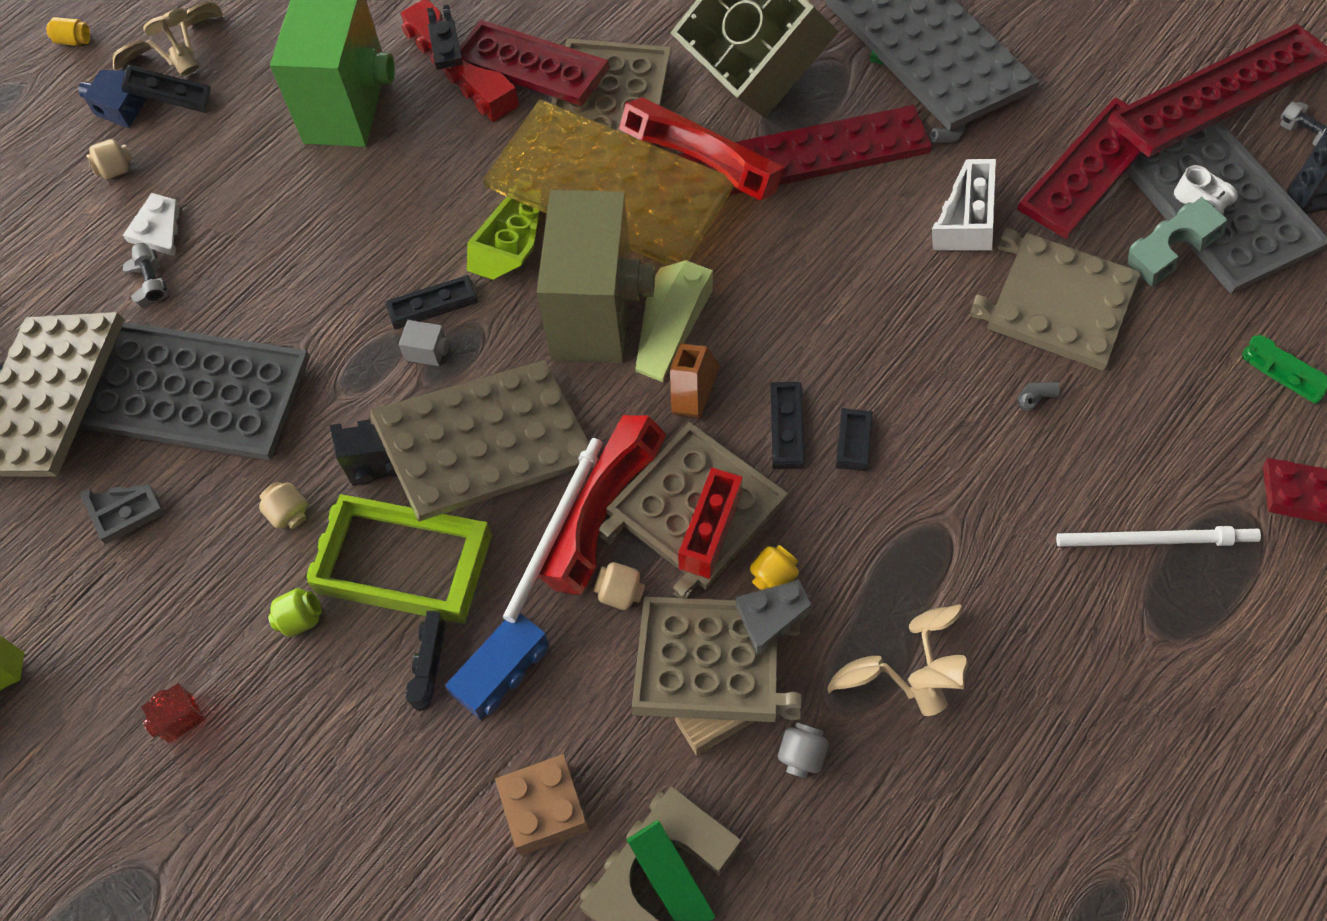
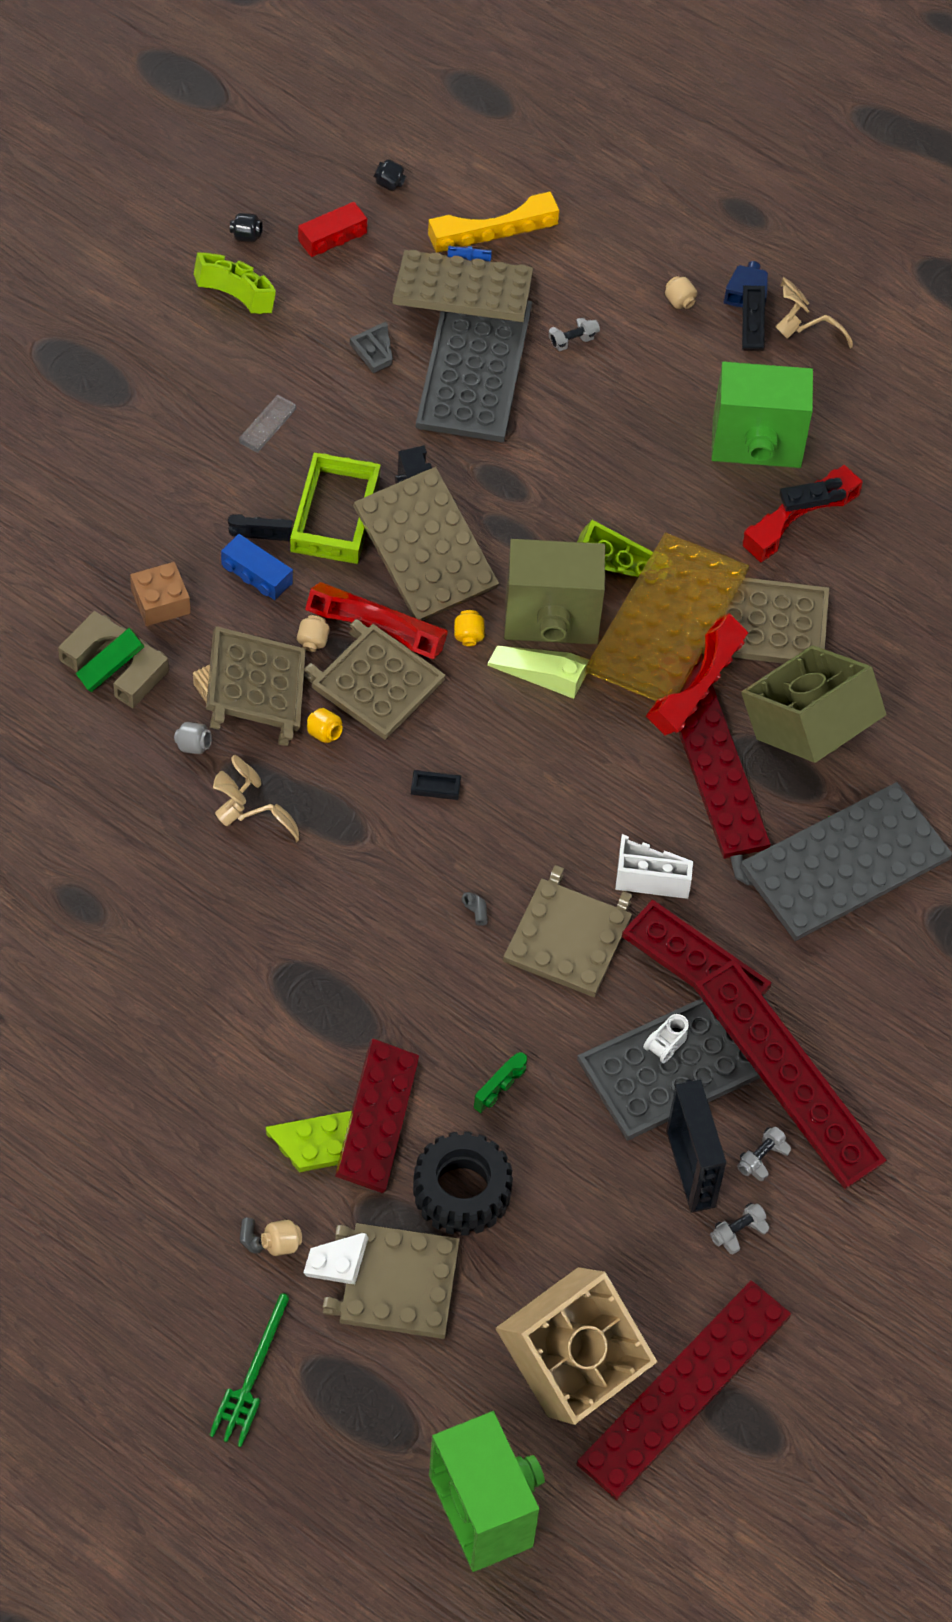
camera: 80 degrees right, 5 degrees down
(68, 31) = (817, 246): yellow brick -> none
(155, 224) = (624, 333): white wing -> none
(171, 713) = (226, 395): clear red brick -> none
(232, 656) = (267, 423): none -> clear tile
(283, 505) = (376, 437): tan head -> none
(294, 612) = (295, 451): lime head -> none
(423, 343) = (513, 508): light grey brick -> none
(431, 301) = (555, 513): black tile -> none
(534, 62) = (795, 560): dark red plate -> none
(587, 461) = (410, 610): white bar -> none
(613, 394) = (469, 627): none -> yellow head
(692, 379) = (482, 675): dark orange slope -> none
(710, 523) = (352, 675): red brick -> none
(772, 612) = (288, 716): dark grey wing -> none
(787, 425) = (448, 742): black tile -> none
(1194, 223) = (608, 999): sand green arch -> none
(1221, 536) = (353, 1015): white bar -> none

